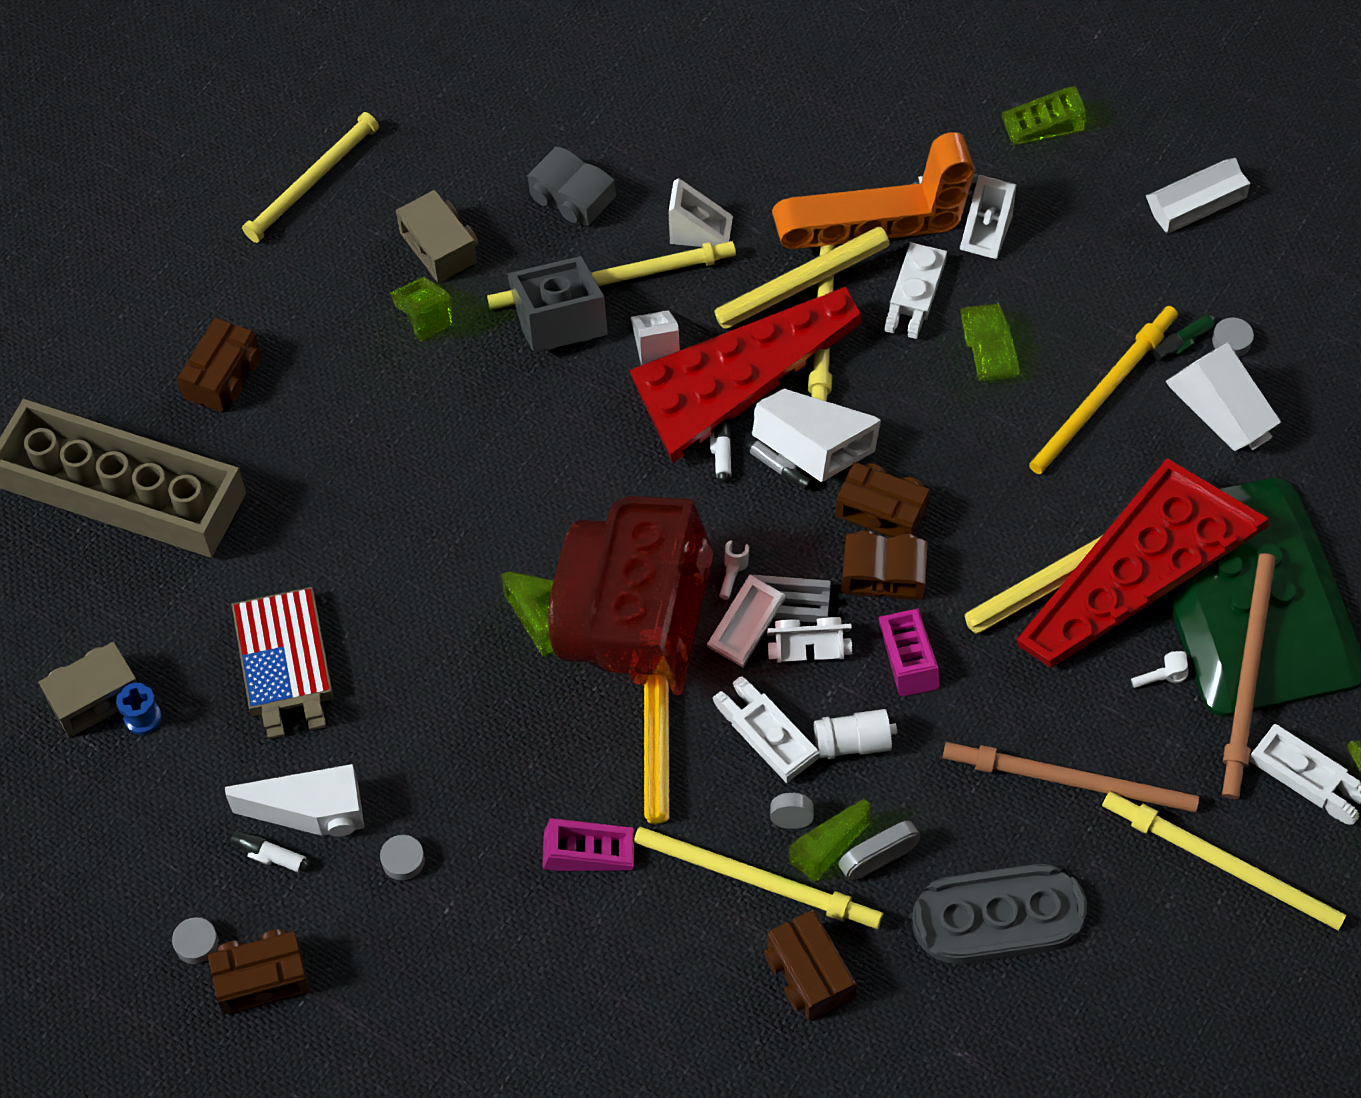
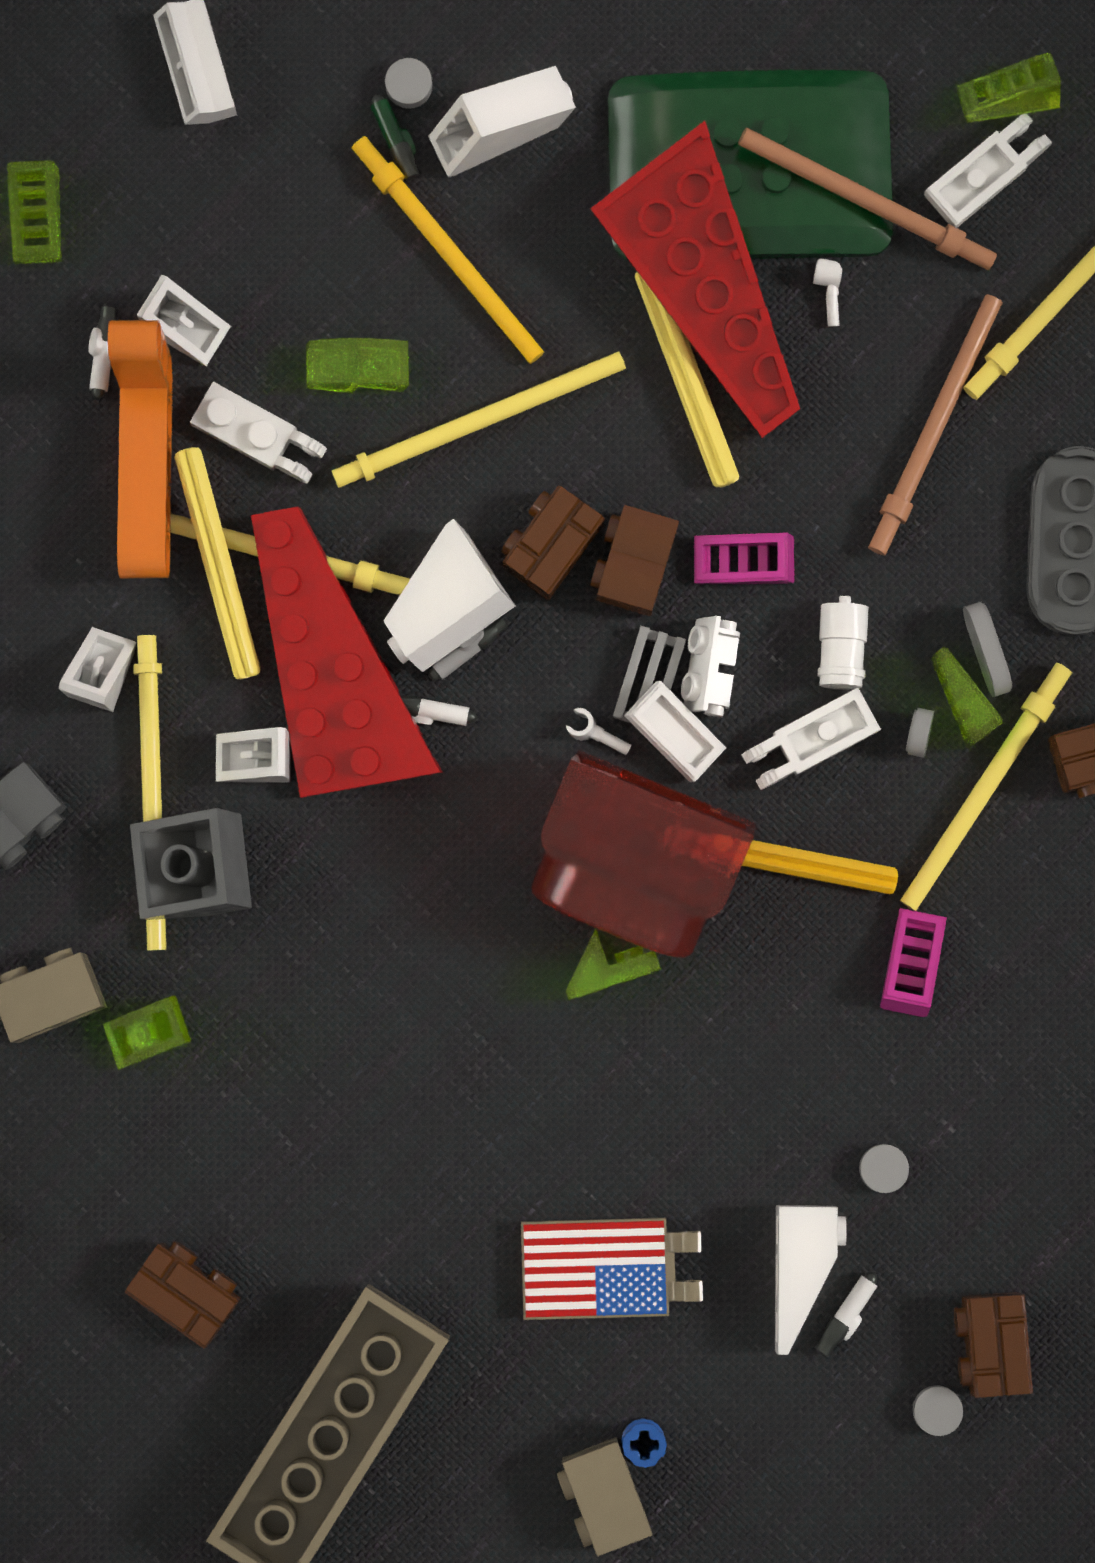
camera: 80 degrees left, 25 degrees up
(910, 367) = (366, 466): none -> light yellow bar

